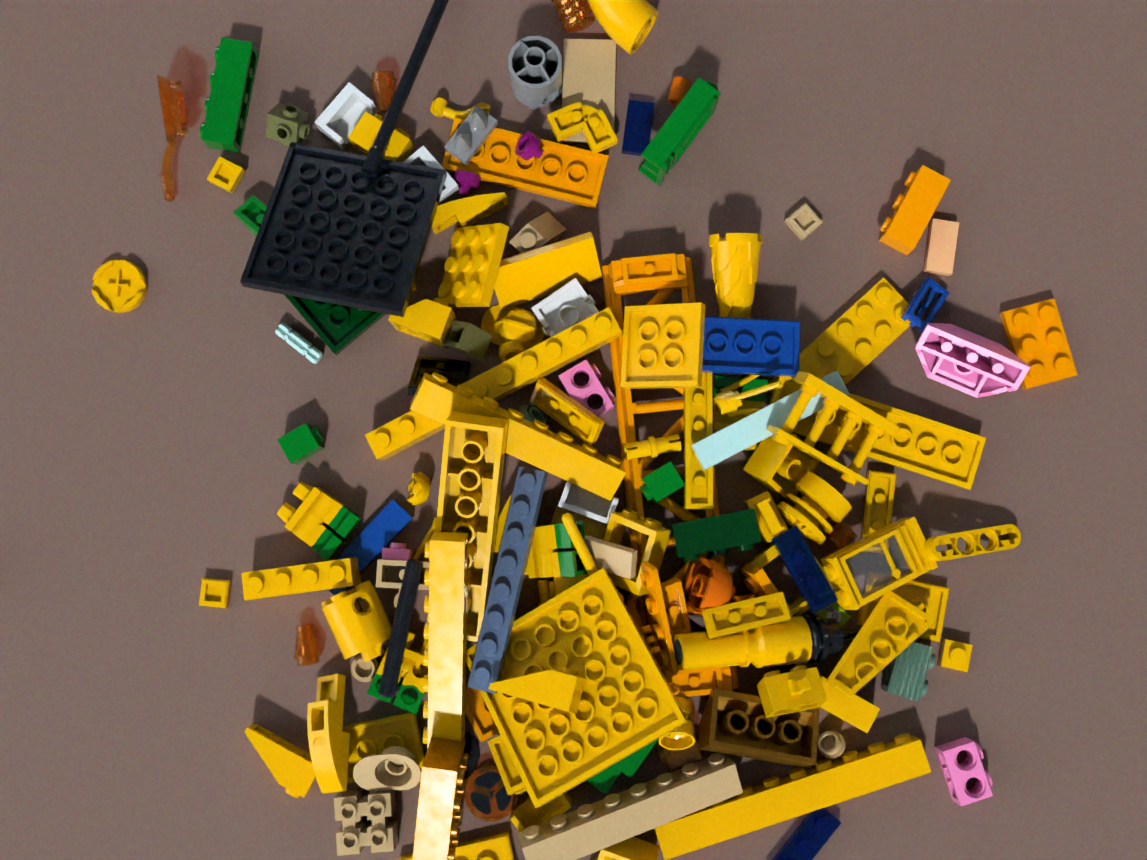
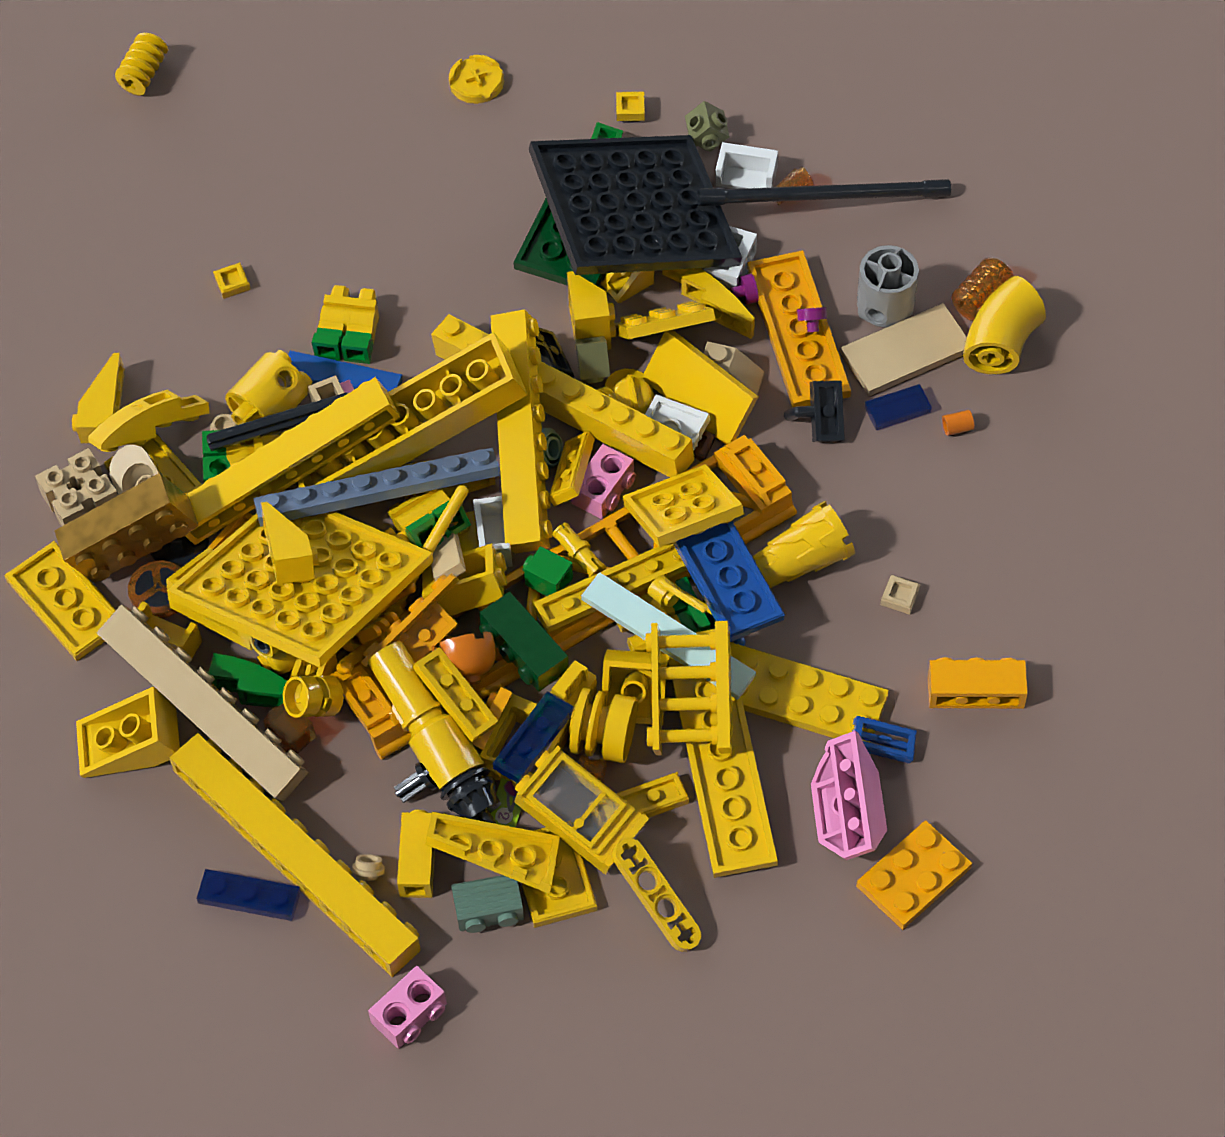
camera: 65 degrees right, 25 degrees down
(173, 117) = (656, 37): clear orange piece -> none
(229, 95) = (706, 74): green brick -> none
(299, 342) = (507, 234): light aqua axle -> none
(301, 443) = (412, 277): green brick -> none
(301, 578) = (282, 329): yellow brick -> none
(306, 646) = (219, 371): clear orange cone -> none
(366, 131) = (742, 215): yellow brick -> none
(439, 109) = (806, 239): yellow piece -> none
(471, 135) = (793, 268): light grey tile -> none
(584, 119) = (871, 353): yellow plate -> none
(620, 186) = (825, 411): none -> black plate
(679, 130) = (913, 431): green door -> none
(738, 727) = (347, 780): pearl gold slope -> none
(791, 691) = (400, 779): yellow brick -> none
(941, 247) = (957, 732): light nougat tile -> none
(955, 655) = (528, 948): yellow plate -> none

